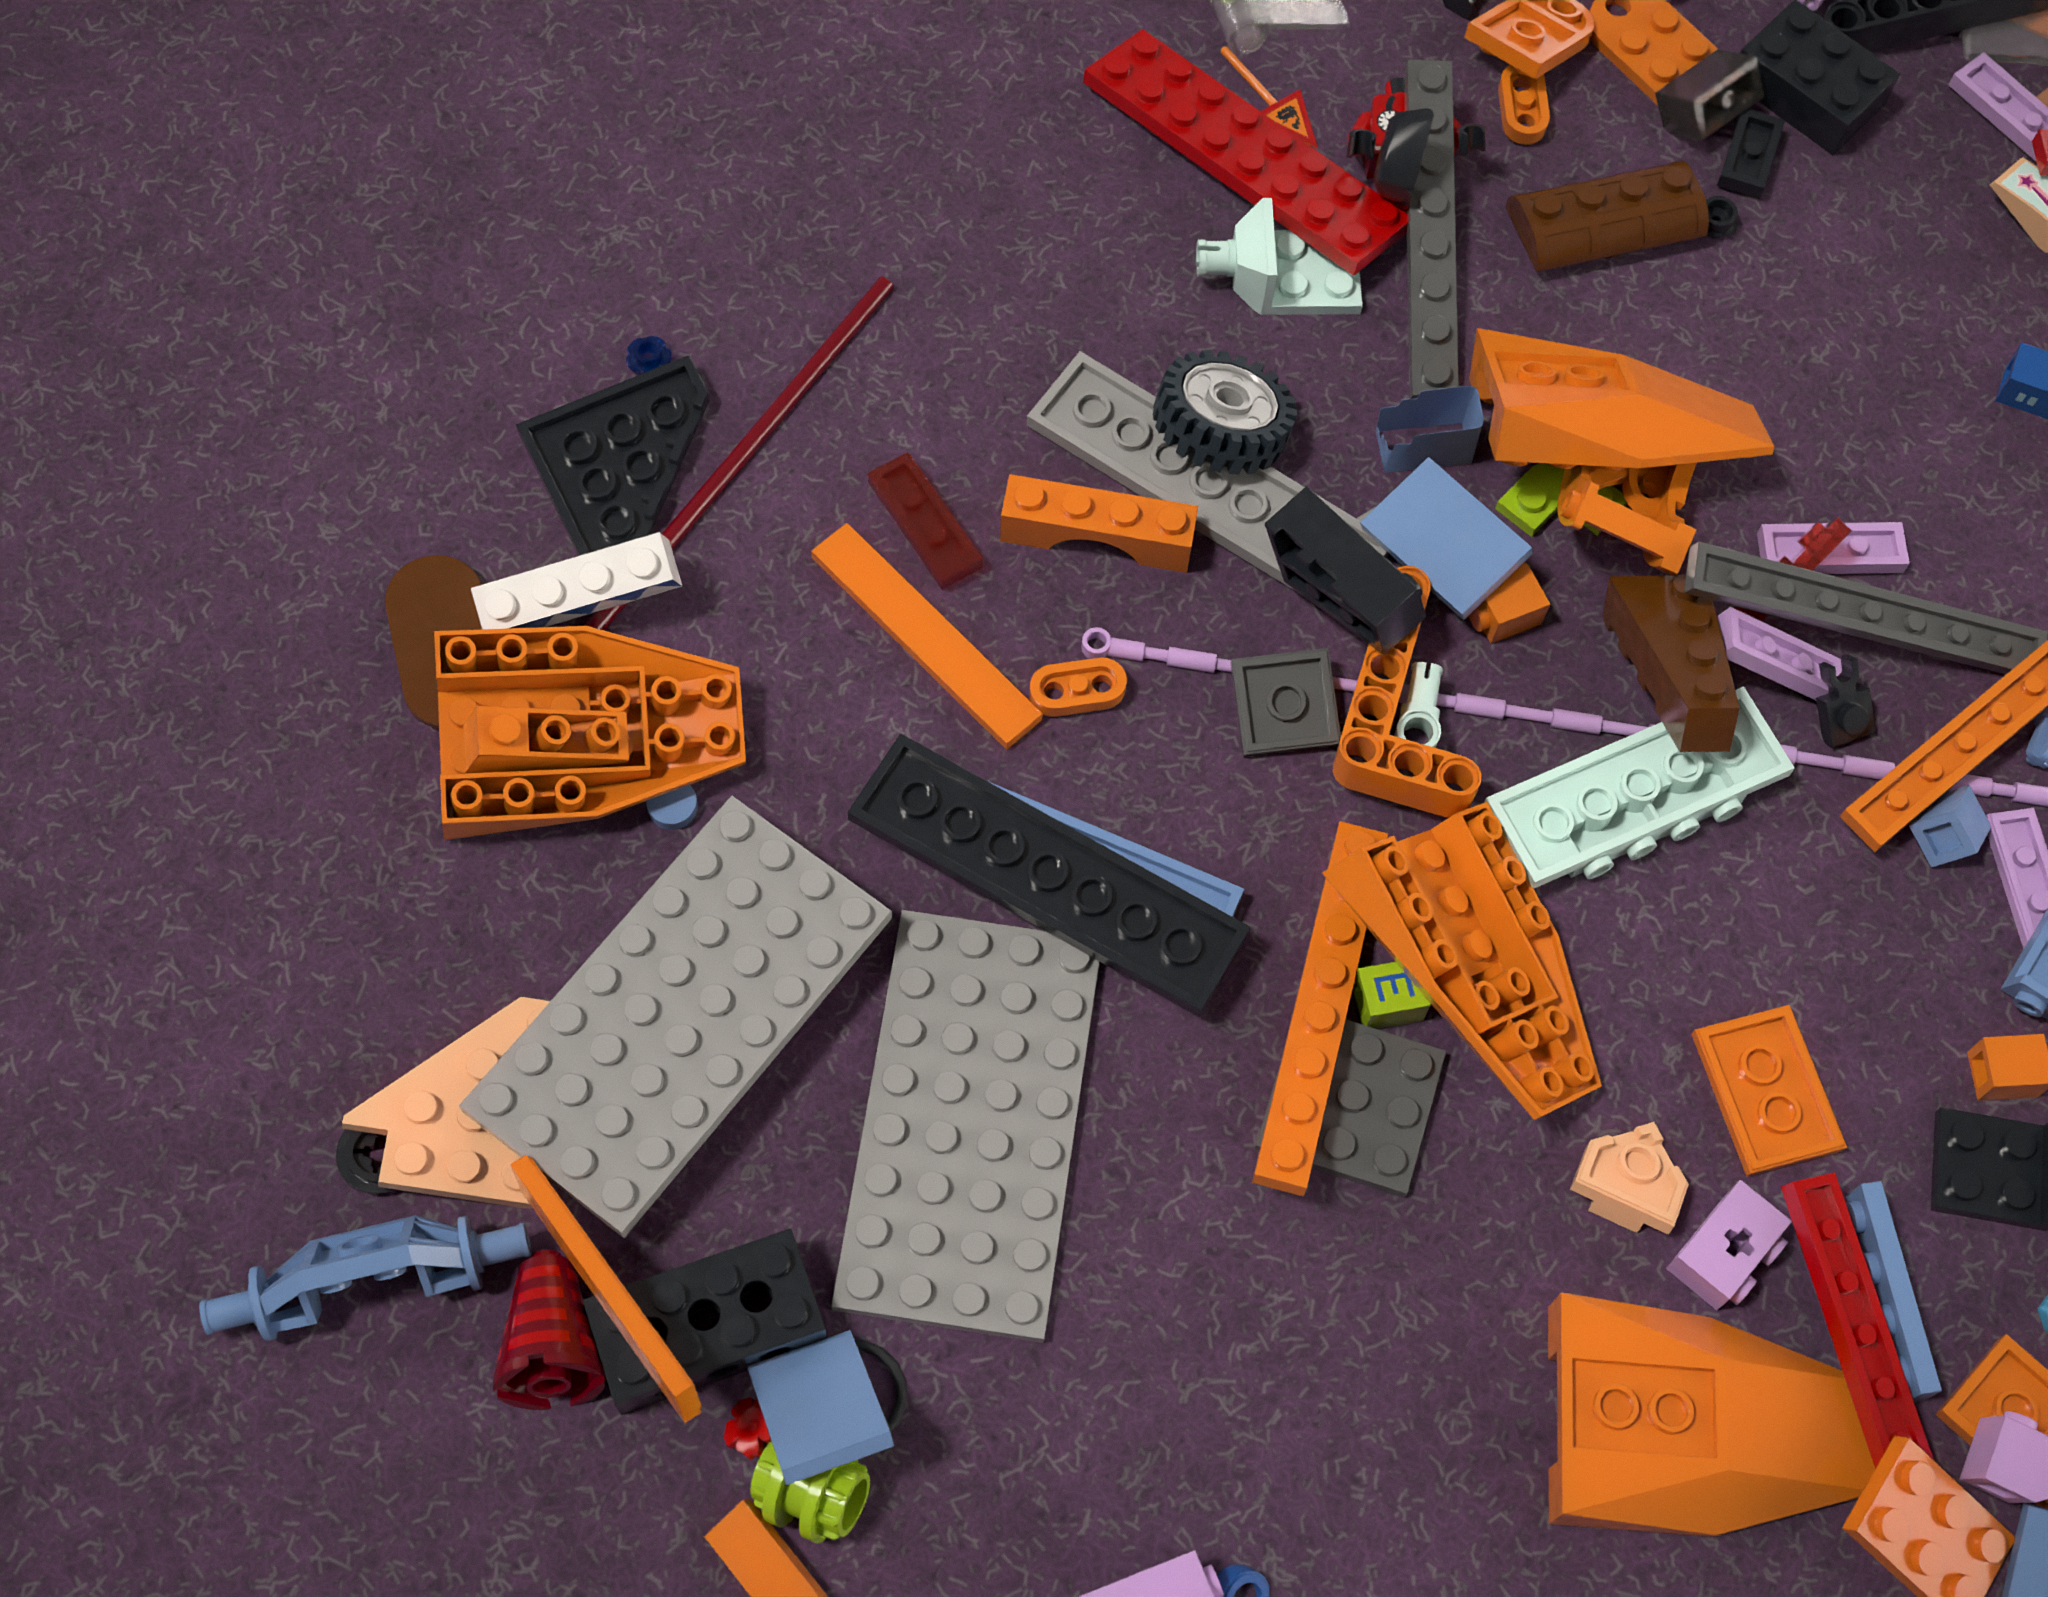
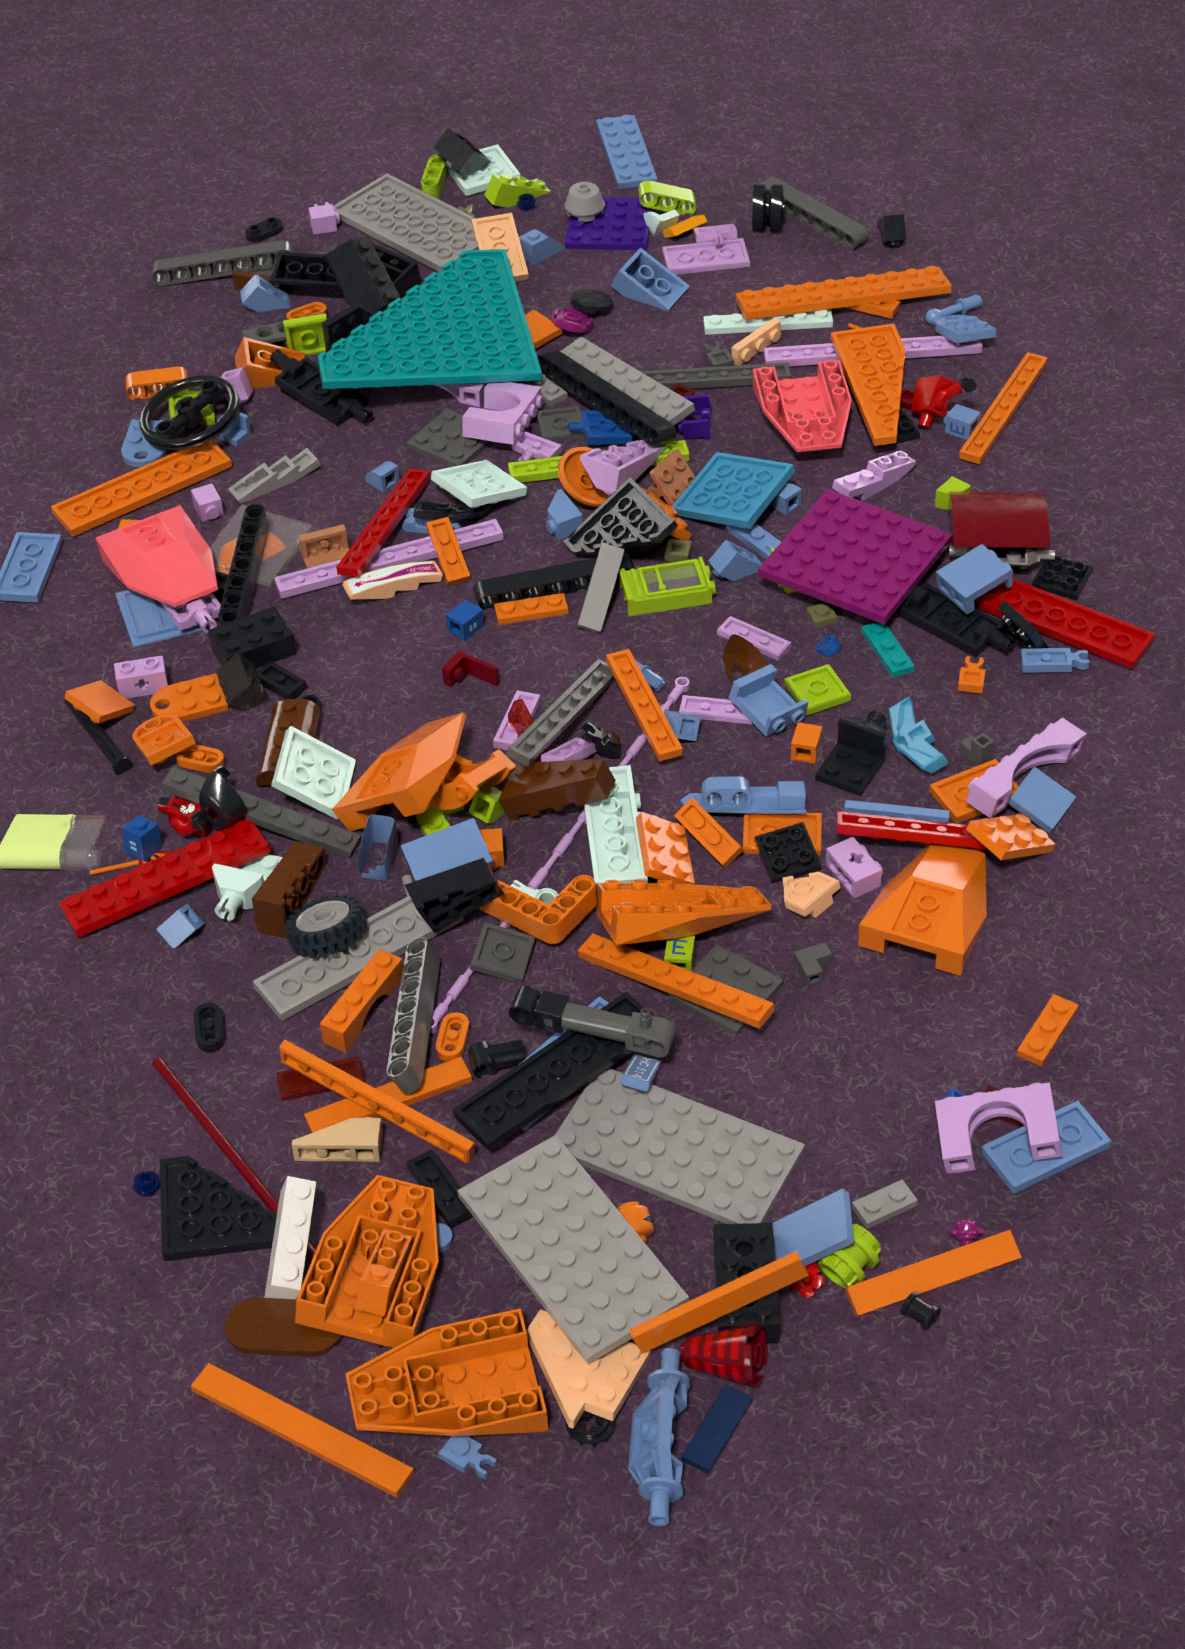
camera: 65 degrees left, 20 degrees down
(265, 738) = (303, 1430): none -> orange tile
(278, 979) = (465, 1453): none -> medium blue plate
(381, 922) = (453, 1382): none -> orange wedge
(416, 1360) = (717, 1429): none -> dark blue tile
(770, 764) = (431, 1173): none -> black plate
(779, 1099) = (639, 1219): none -> orange head
(810, 602) = (346, 1141): none -> tan slope
(887, 617) = (377, 1102): none -> orange tile
(962, 1519) = (884, 1204): none -> light grey plate
(968, 325) = (208, 1028): none -> black plate
(1054, 760) = (488, 1058): none -> black piece
(1088, 609) = (413, 1016): none -> dark grey beam
(1097, 1009) = (640, 1072): none -> medium blue tile
(1144, 840) = (555, 1013): none -> dark grey piece
(1157, 209) = (180, 926): none -> medium blue panel
(1293, 327) = (287, 887): none -> reddish brown wedge
(1309, 85) = (141, 838): none -> blue brick
(1471, 1226) = (811, 960): none -> dark grey piece
(1549, 268) = (312, 771): none -> light aqua plate
(1605, 559) = (486, 805): none -> lime brick
(1621, 893) = (664, 849): none -> orange plate
(1701, 957) = (708, 832): none -> orange plate
(1714, 1113) = (787, 852): none -> black tile
(1815, 995) = (784, 799): none -> medium blue panel
(1918, 408) = (463, 663): none -> dark red bracket

